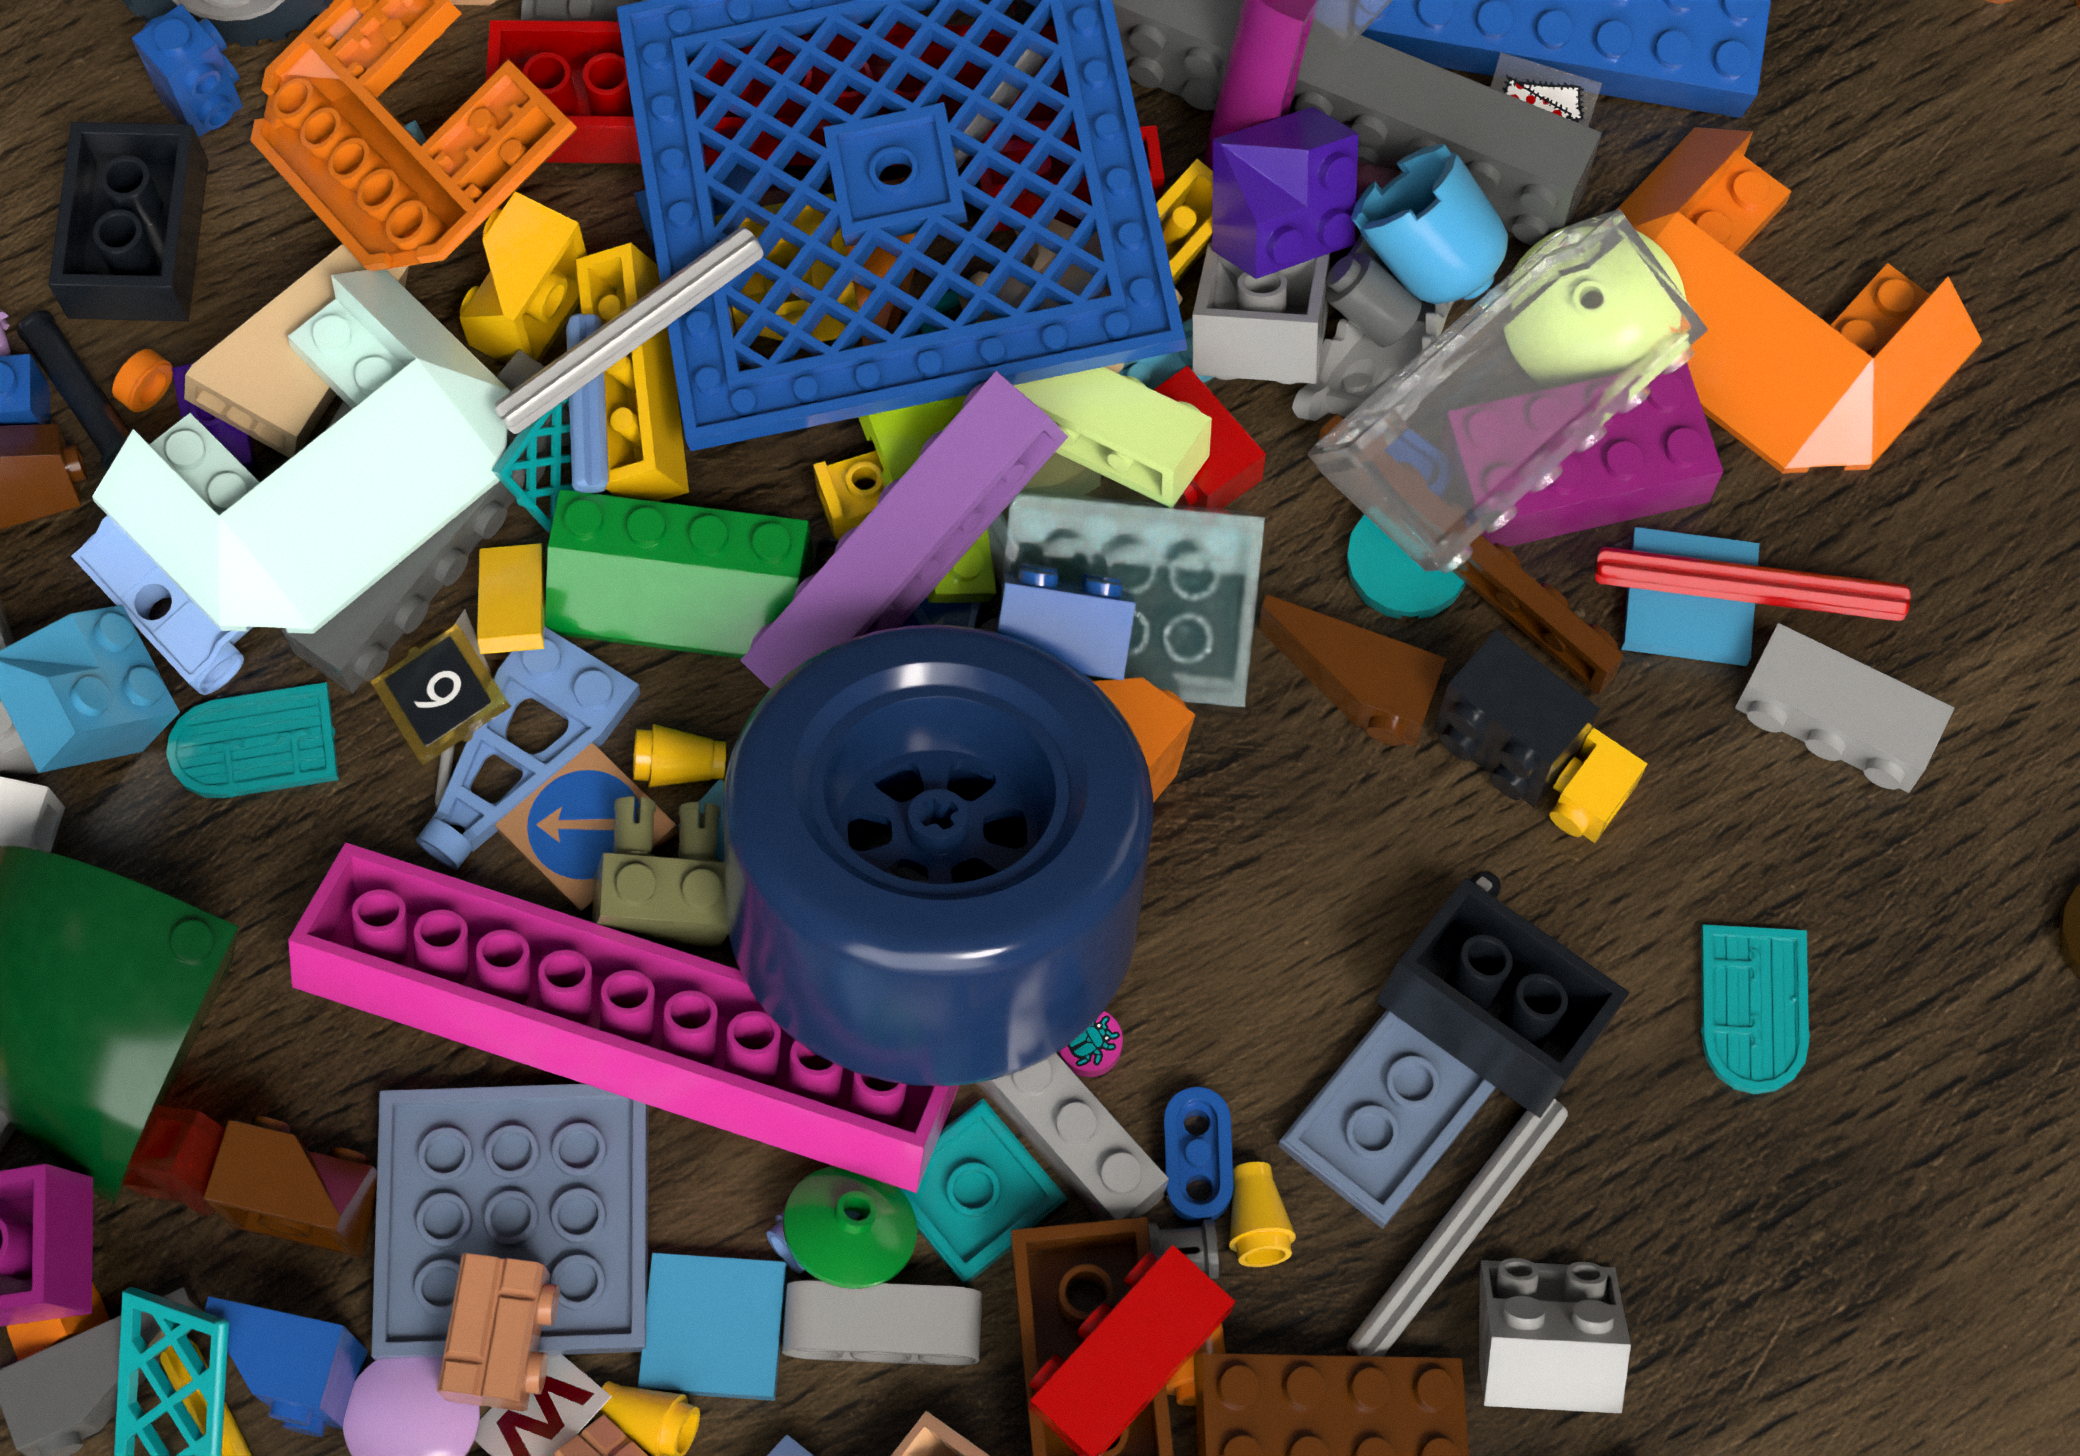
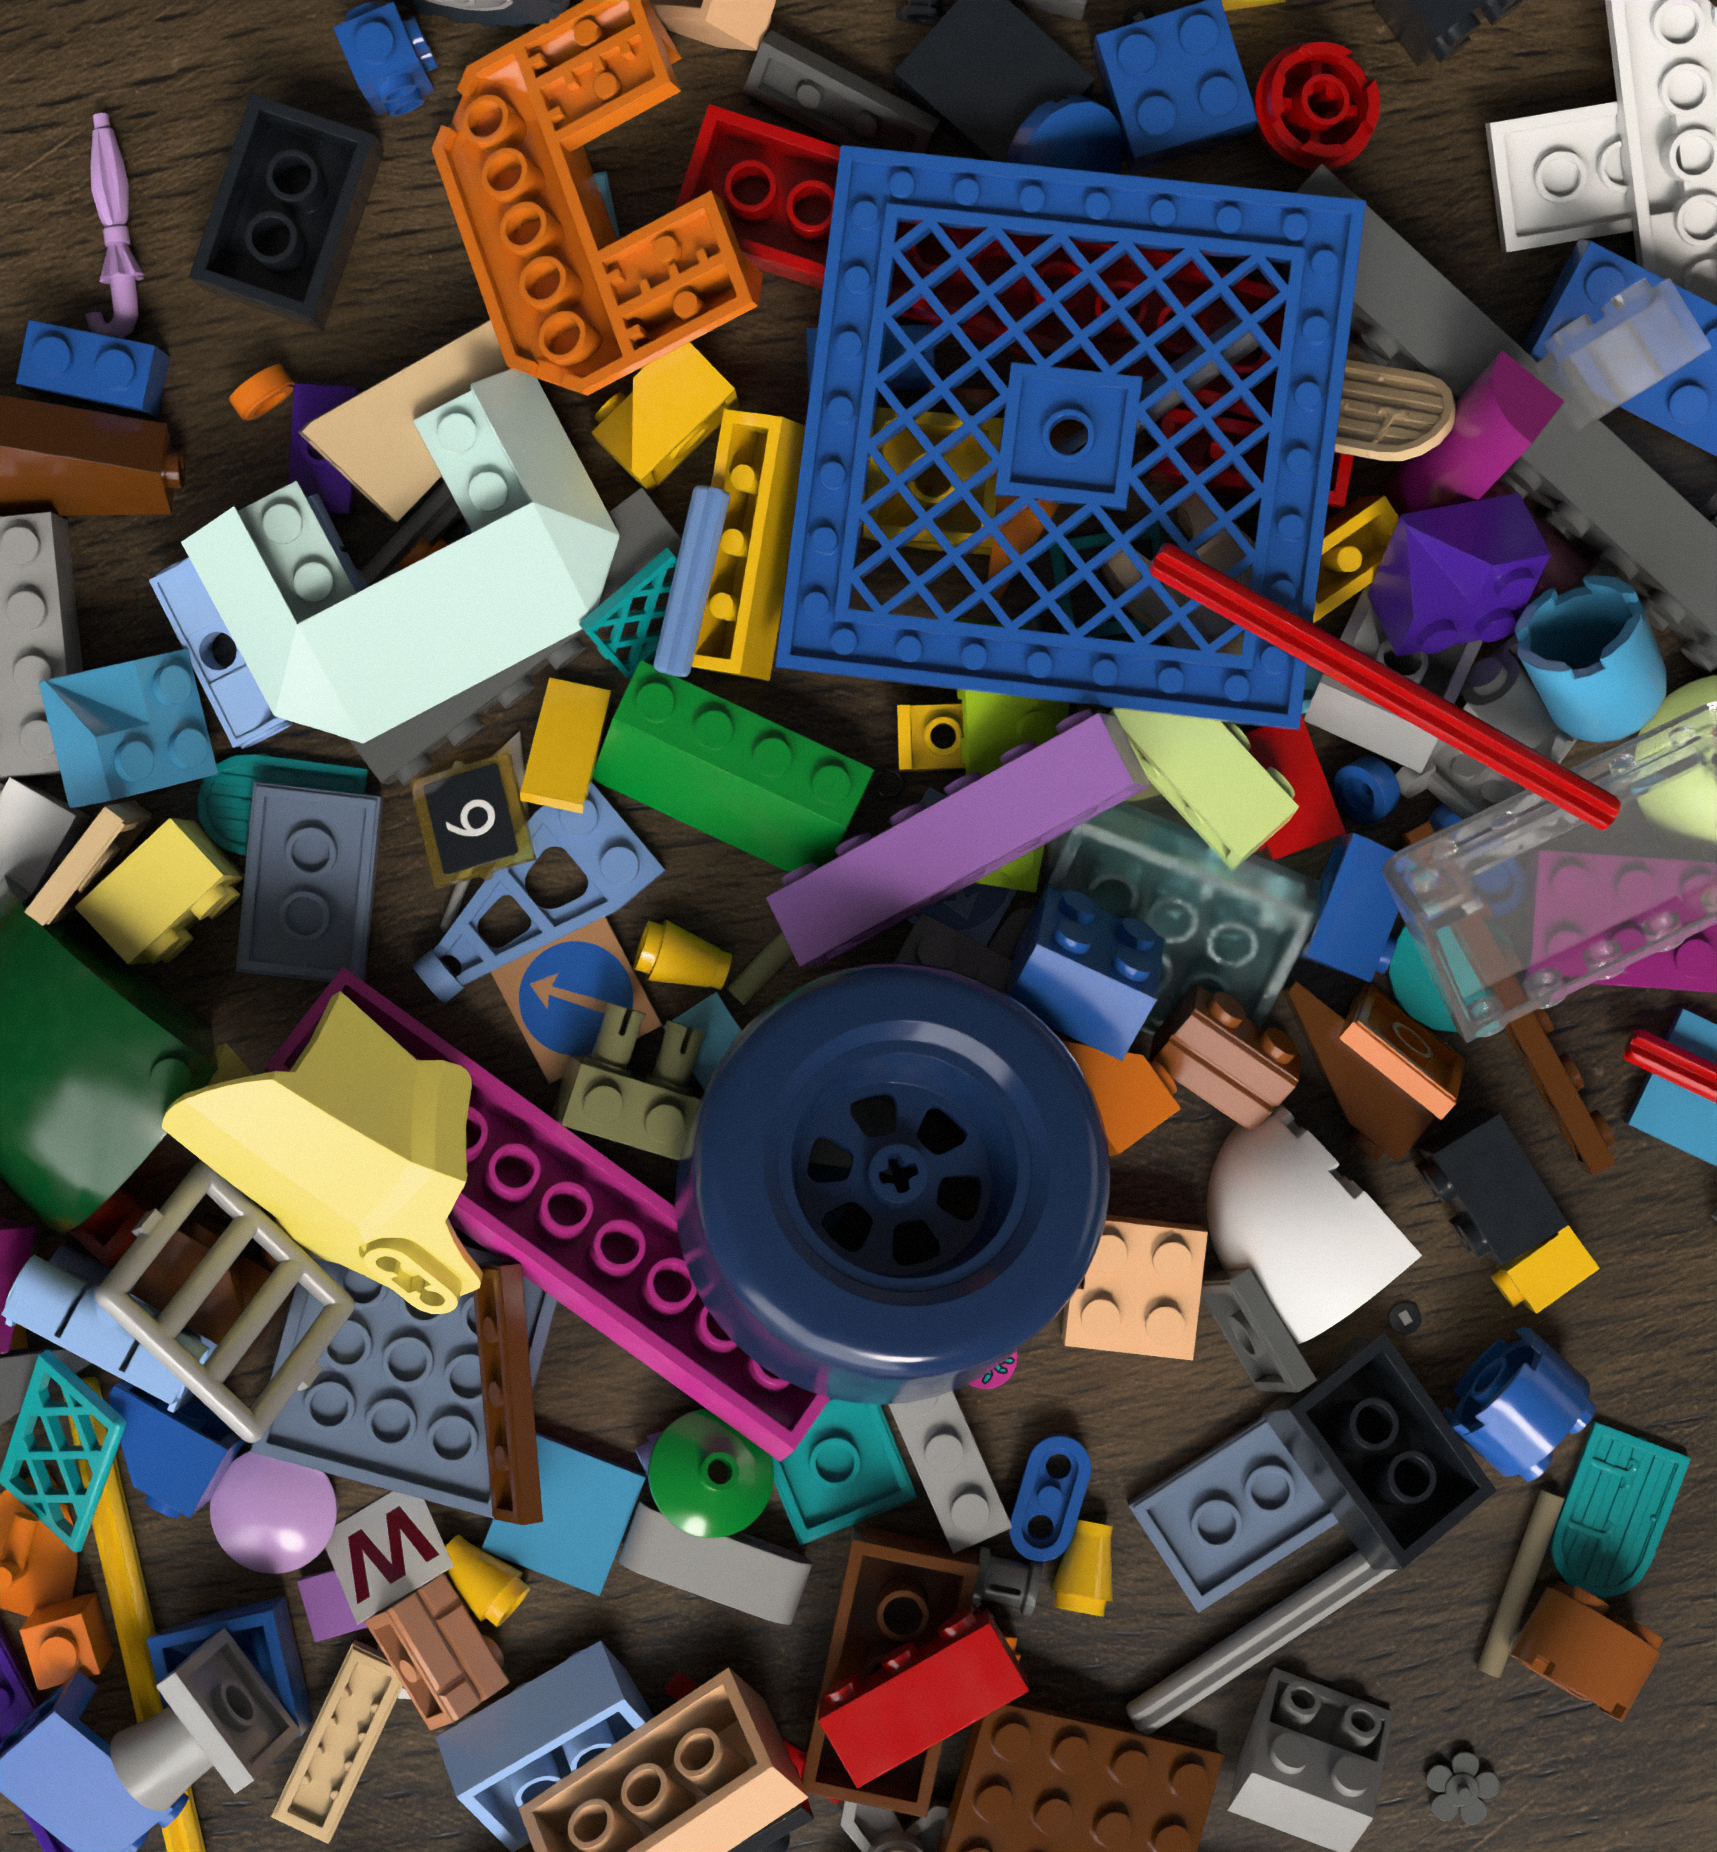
camera: 20 degrees right, 20 degrees up
(72, 798) = (89, 861): none -> tan tile
(75, 384) = (198, 381): black pin -> none
(152, 822) = (162, 893): none -> light yellow brick
(196, 1244) = (61, 1305): none -> light blue piece
(291, 793) = (309, 881): none -> sand blue tile
(302, 1232) = (159, 1335): none -> light grey bar
(383, 995) = (347, 1152): none -> light yellow piece
(497, 1332) = (365, 1478): nougat brick -> none
(619, 1203) = (507, 1394): none -> reddish brown tile
(628, 330) = (753, 530): axle -> none
(1178, 75) = (1392, 412): none -> tan window
(1216, 923) = (1140, 1290): none -> light nougat piece
(1227, 683) = (1227, 1057): none -> dark orange brick
(1251, 276) = (1384, 686): none -> red axle
(1274, 422) = (1367, 789): none -> blue tile
(1300, 523) = (1354, 911): none -> blue slope
(1341, 919) = (1255, 1331): none -> dark grey tile
(1350, 810) = (1300, 1226): none -> white brick
(1388, 622) = (1403, 1050): none -> orange tile
(1622, 911) = (1520, 1405): none -> blue brick
(1691, 1100) = (1520, 1583): none -> dark tan bar
(1712, 1322) = (1461, 1788): none -> dark grey plant
(1778, 1126) = (1585, 1651): none -> dark orange brick

